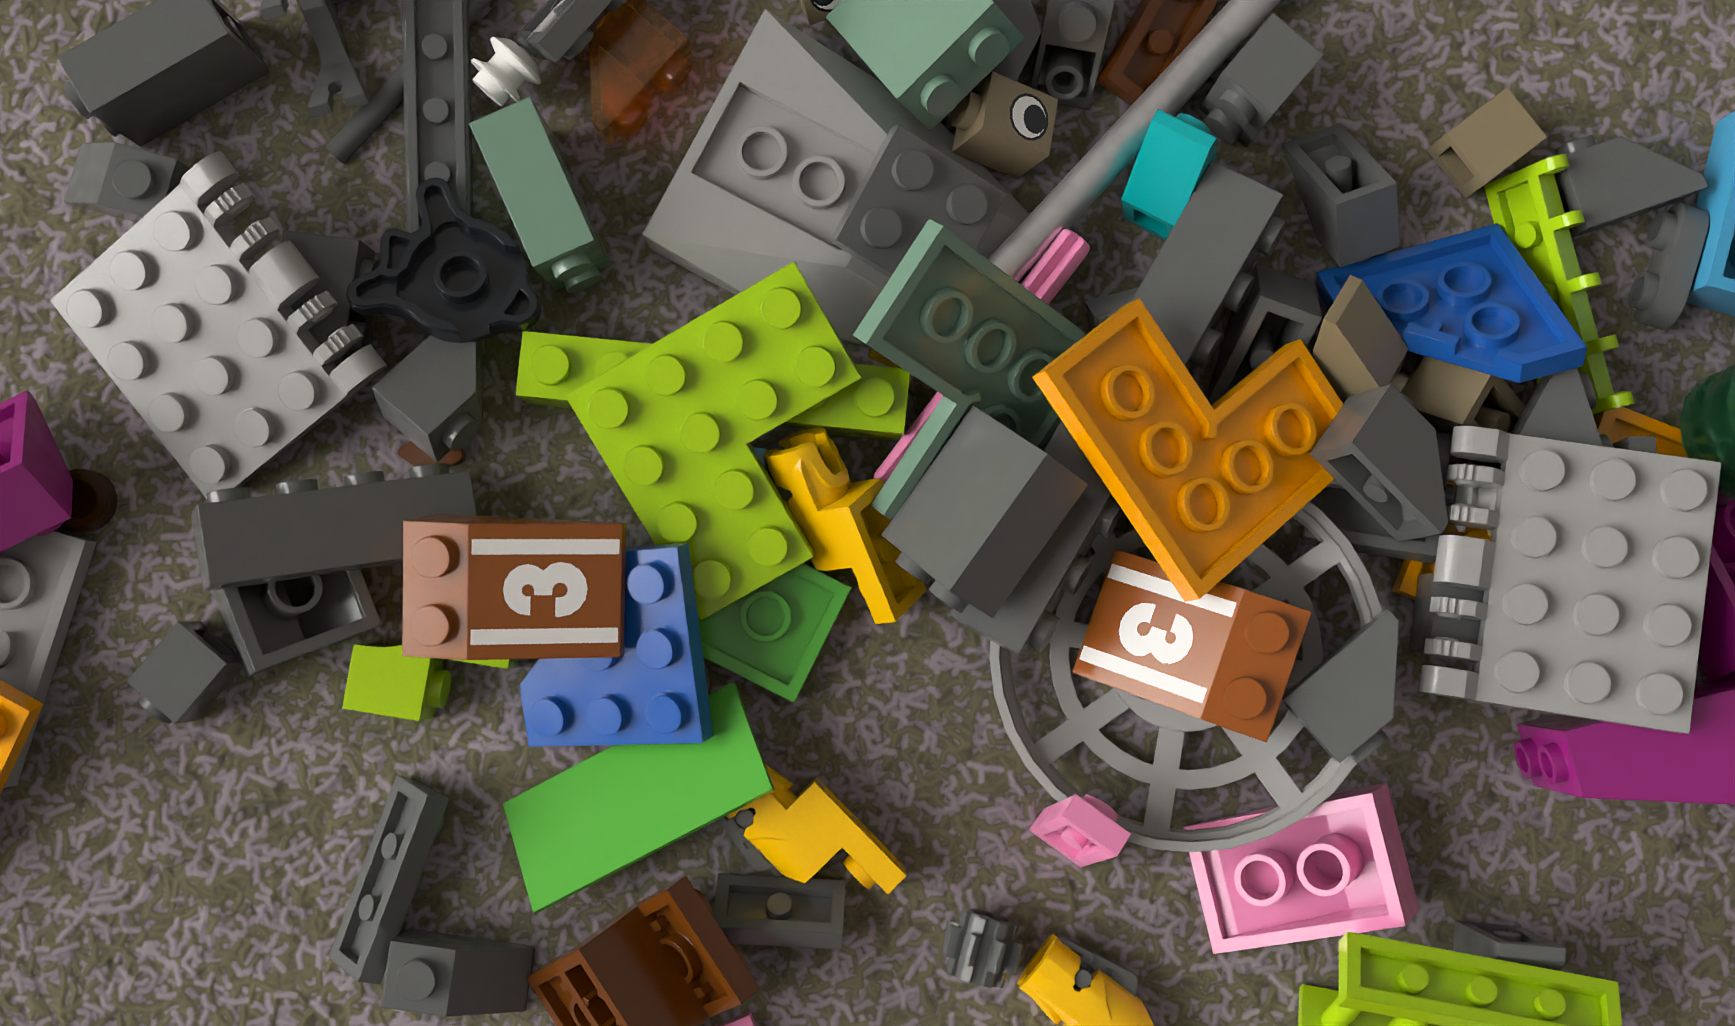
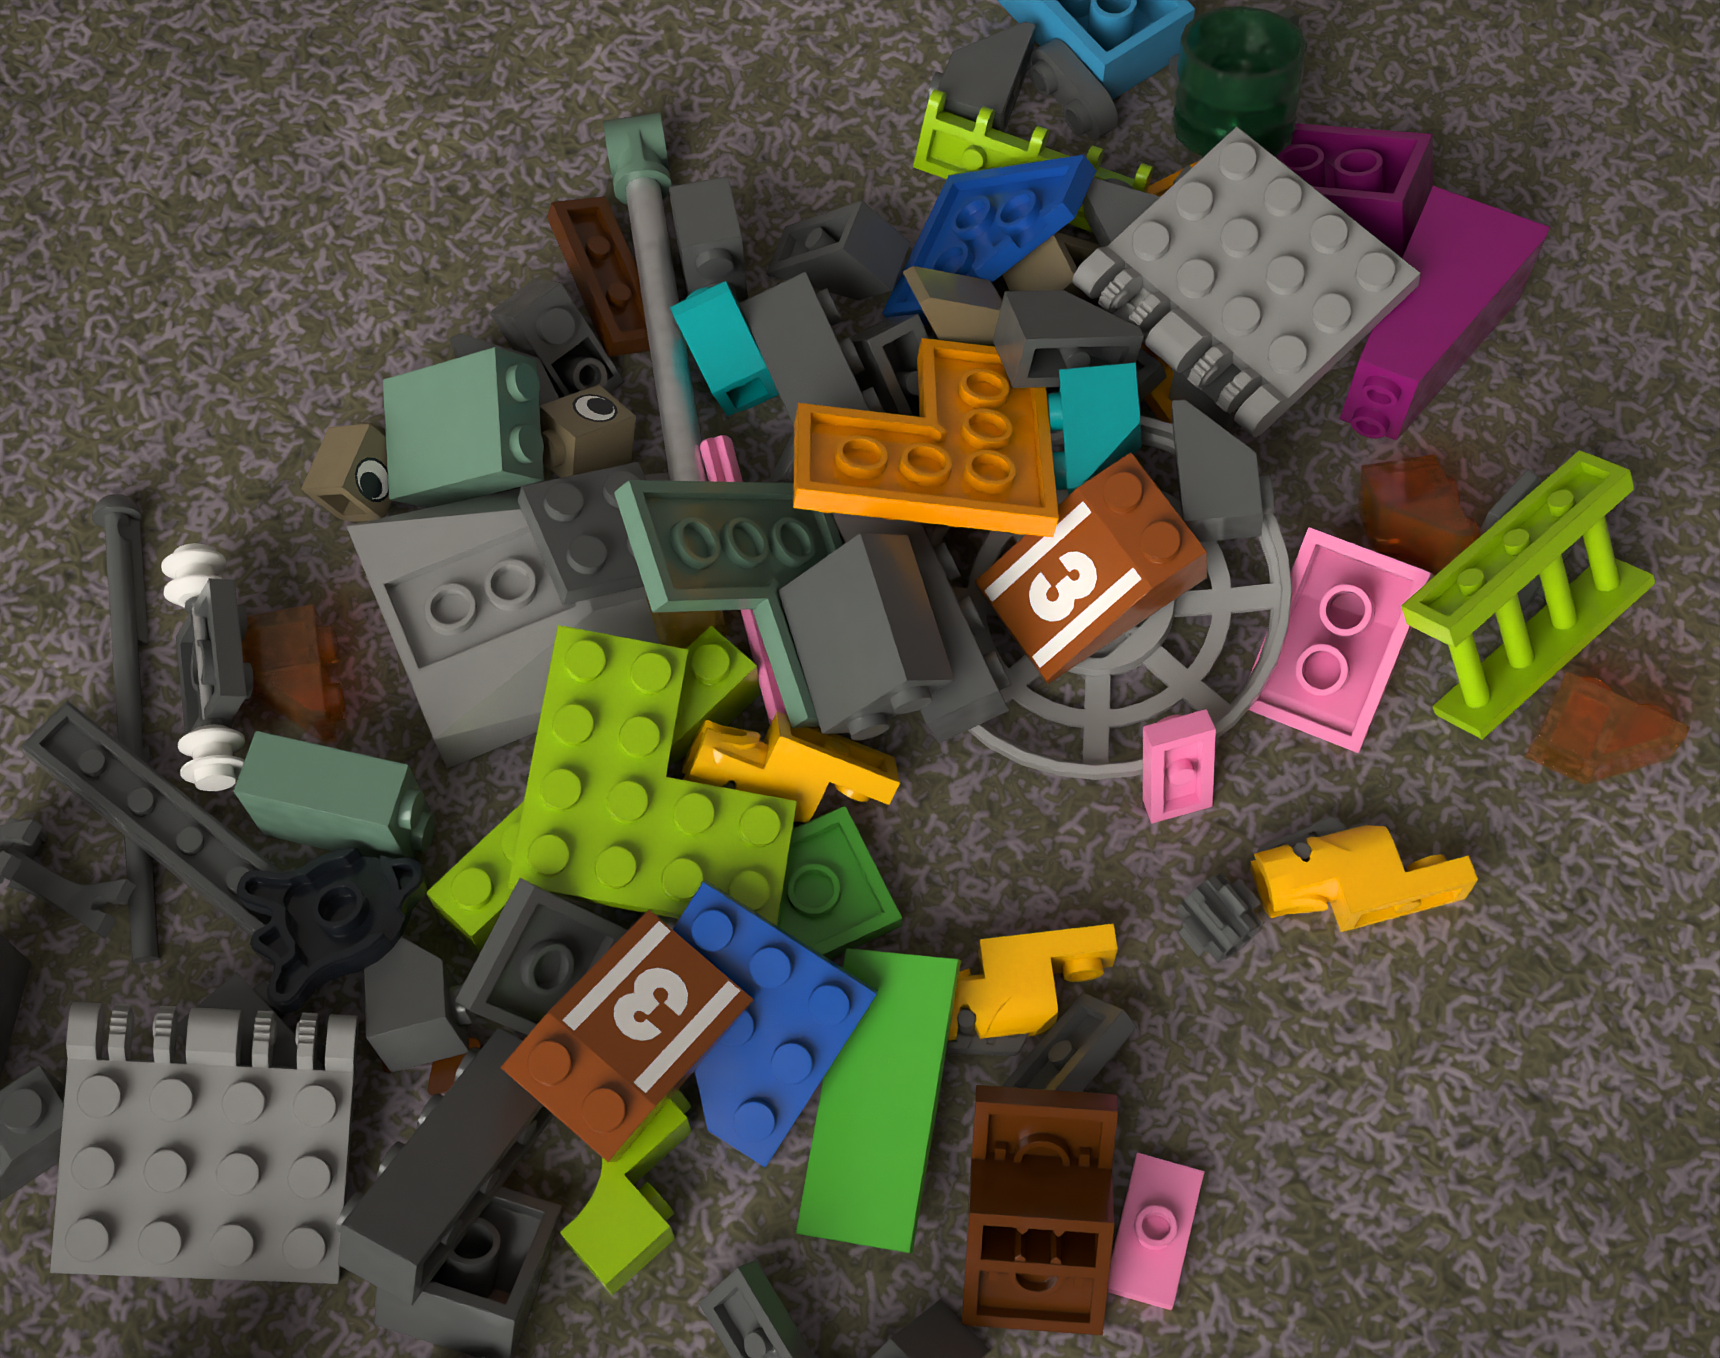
camera: 50 degrees left, 20 degrees down
(534, 465) = (534, 957): none -> dark grey plate
(1325, 558) = (1097, 418): none -> teal slope
(1462, 863) = (1414, 512): none -> clear orange slope
(1487, 142) = (883, 138): dark tan brick -> none

